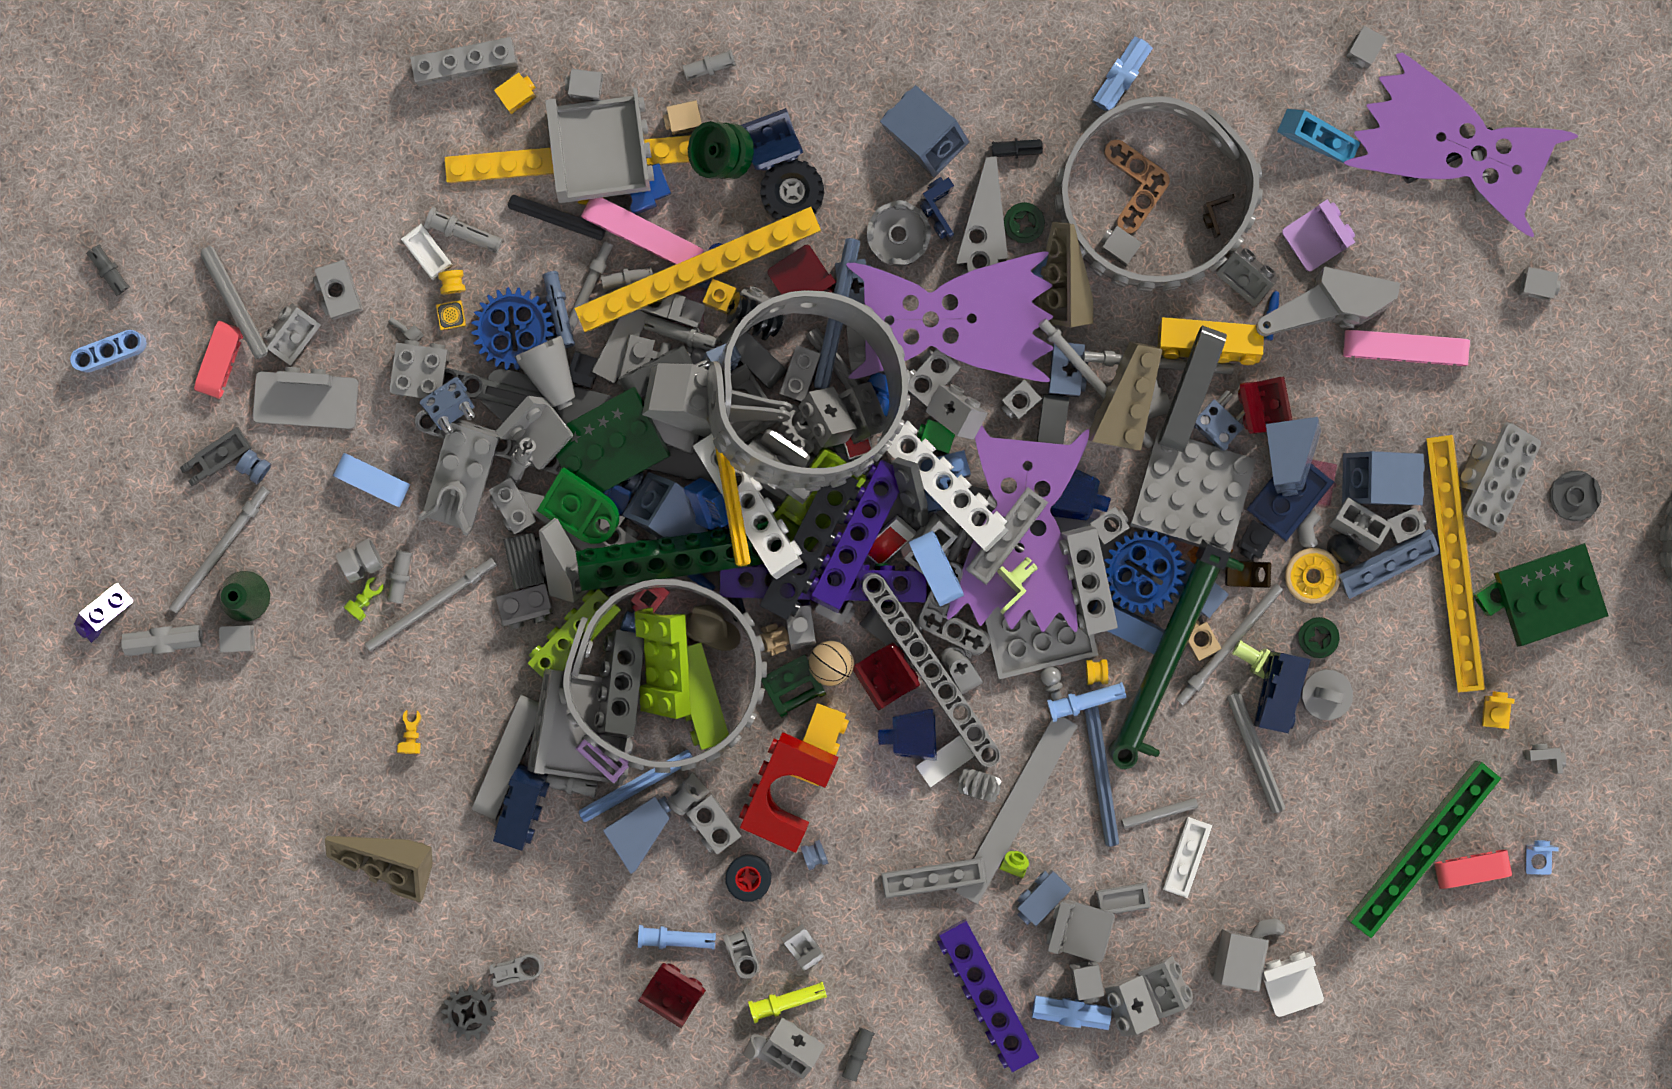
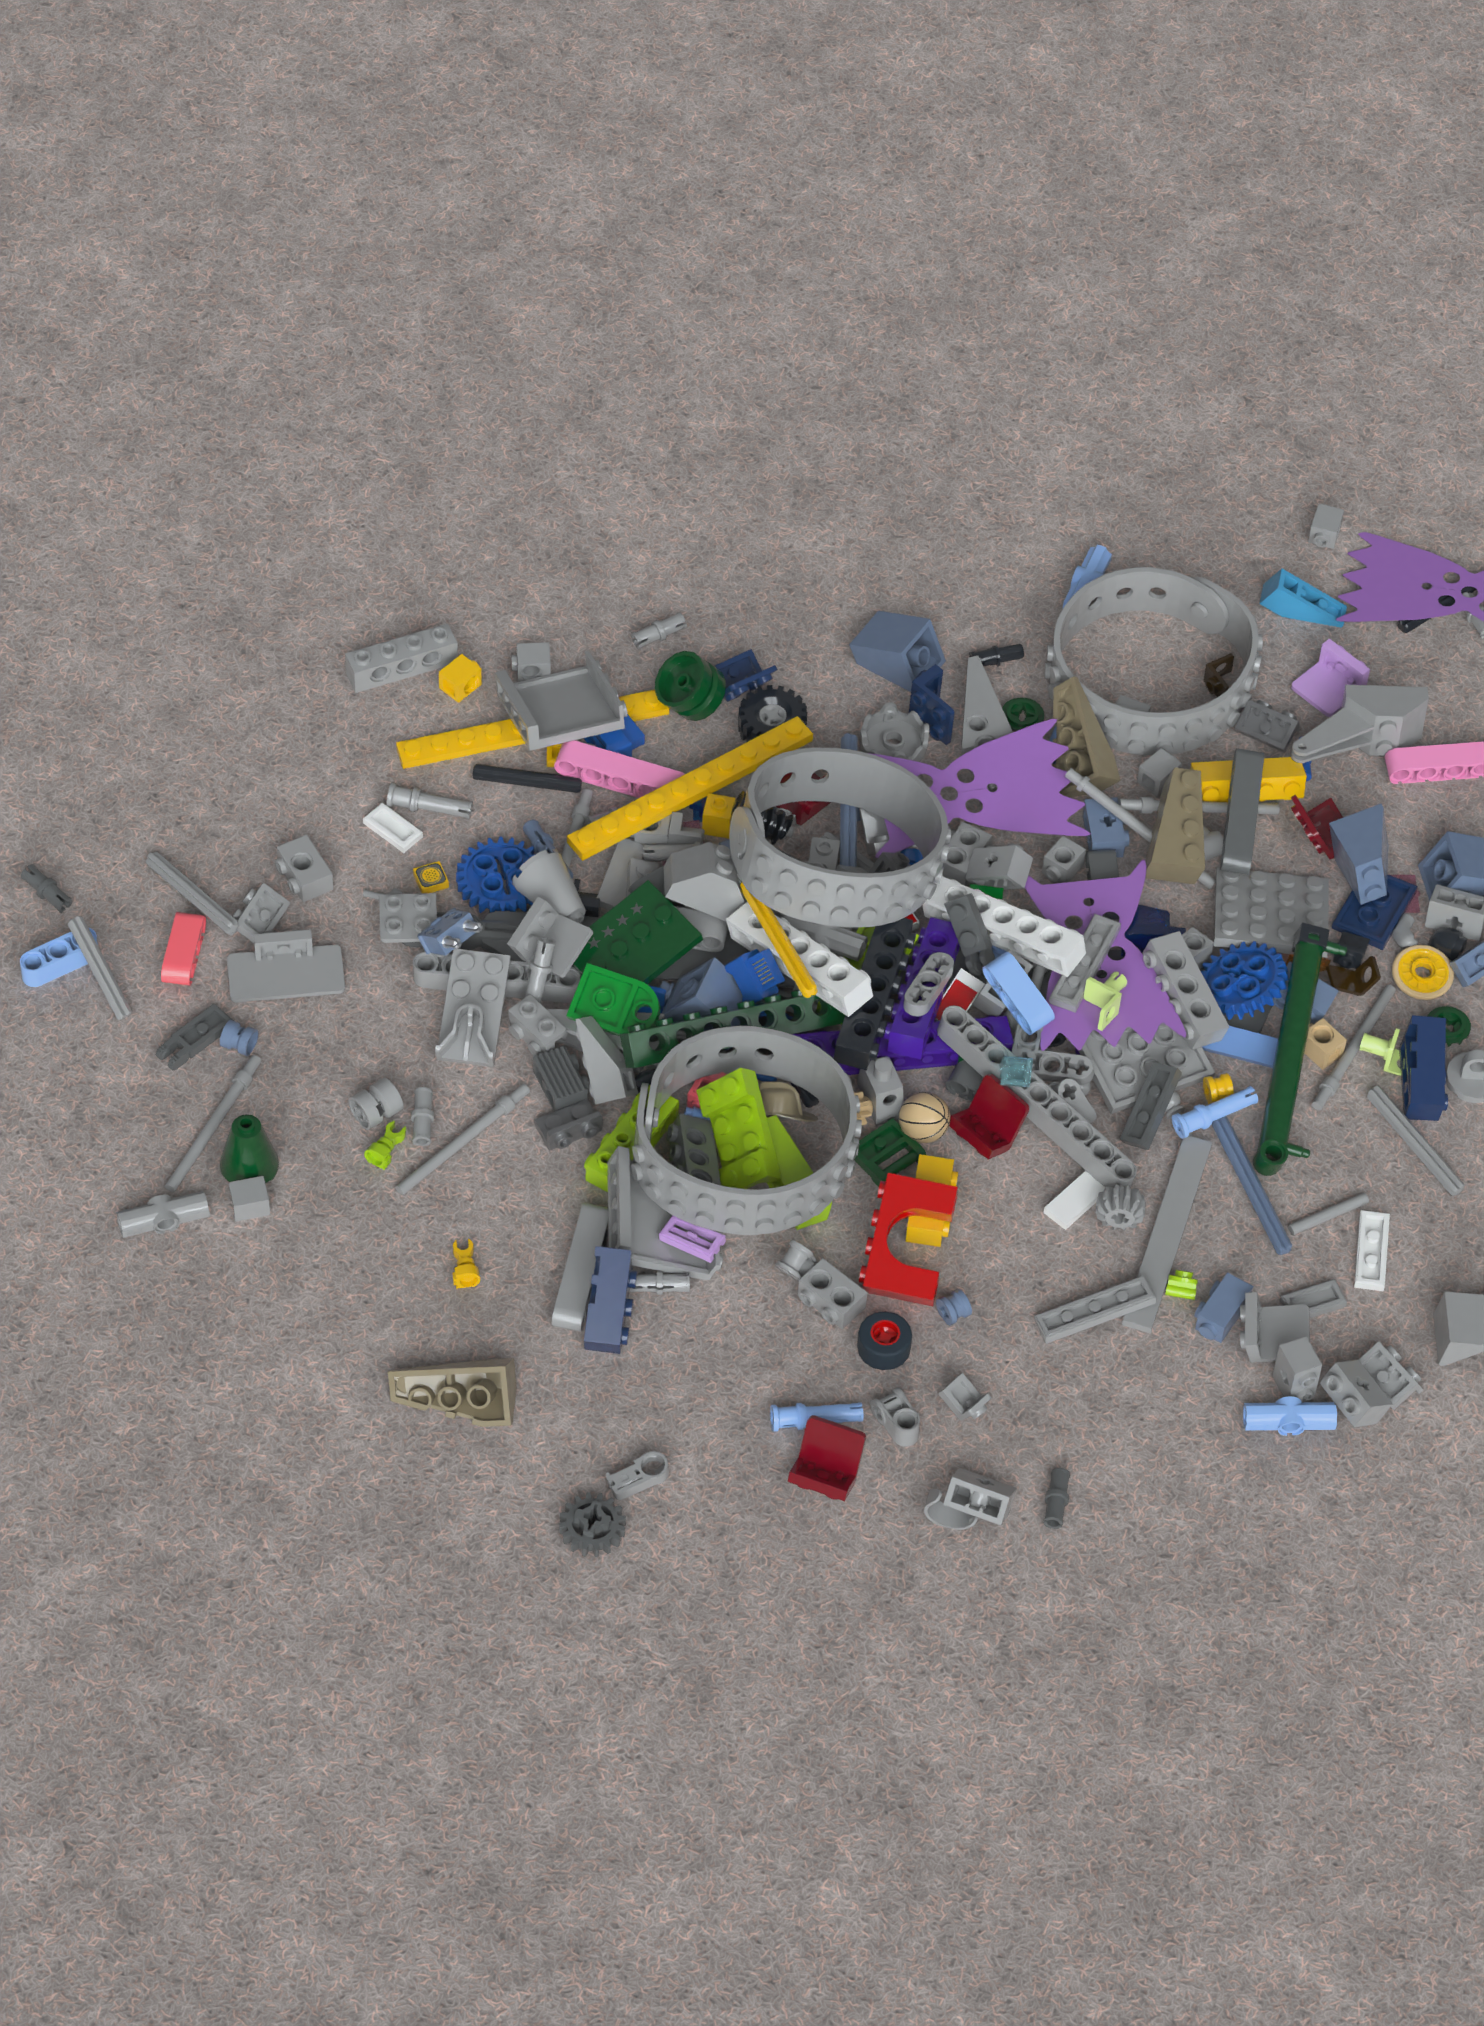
camera: 15 degrees left, 35 degrees down
(101, 612) = (82, 1198): bracket -> none
(139, 375) = (99, 968): none -> light grey axle
(371, 480) = (373, 1030): light blue beam -> none
(451, 282) = (426, 845): yellow wheel -> none
(628, 790) = (733, 1275): light blue axle -> none
(638, 830) = (747, 1303): sand blue slope -> none
(682, 117) = (640, 673): tan brick -> none
(774, 1005) = (948, 1462): neon yellow pin -> none
(837, 617) = (916, 1078): light grey bracket -> none
(875, 537) = (928, 994): none -> light grey beam
(912, 735) = (1033, 1174): clear blue torso -> none
(914, 653) = (1015, 1071): none -> clear light blue slope
(1024, 1051) = (1186, 1398): dark purple brick -> none
(1031, 686) = (1150, 1105): none -> dark grey plate
(1133, 314) = (1156, 770): none -> light grey brick
(1144, 178) = (1135, 663): medium nougat beam -> none
(1216, 426) = (1278, 853): sand blue piece -> none

